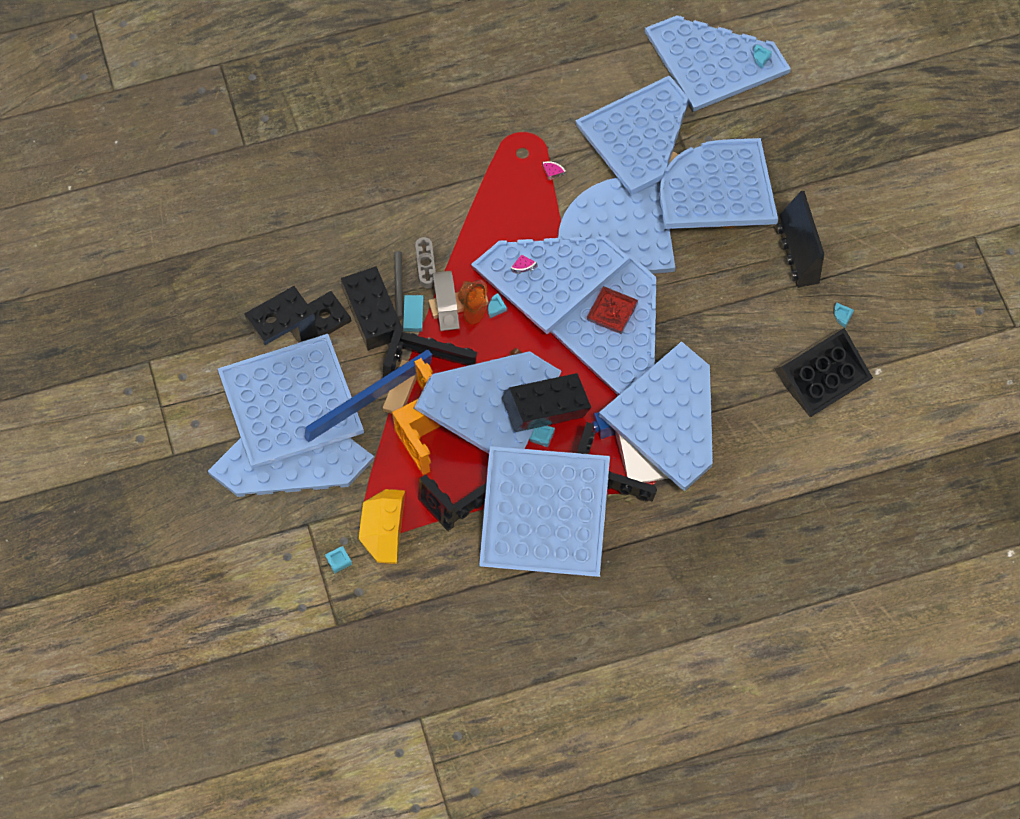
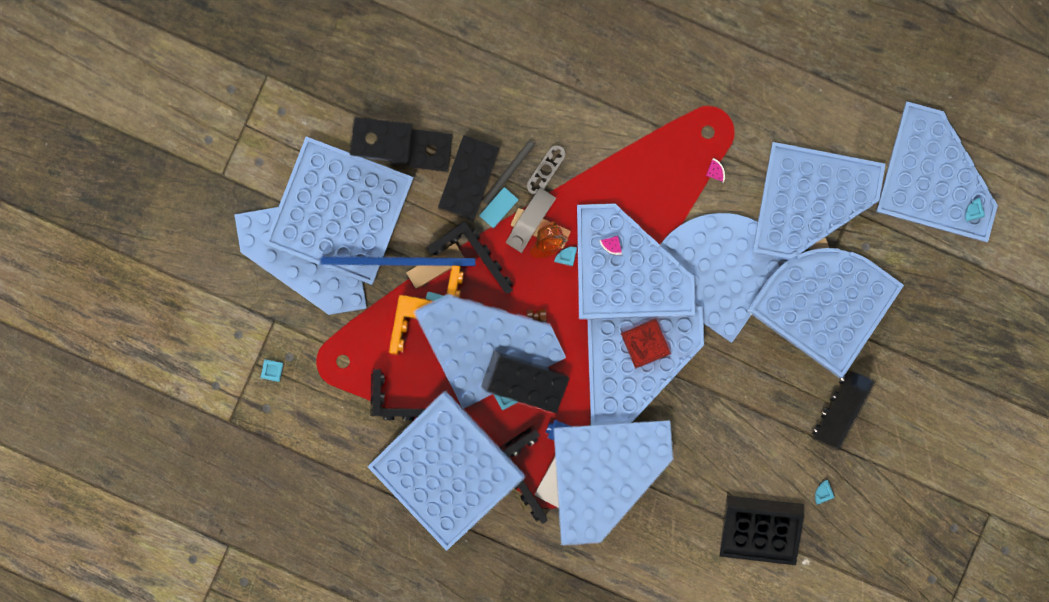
camera: 40 degrees right, 25 degrees up
(382, 525) = (326, 370): yellow wedge -> none

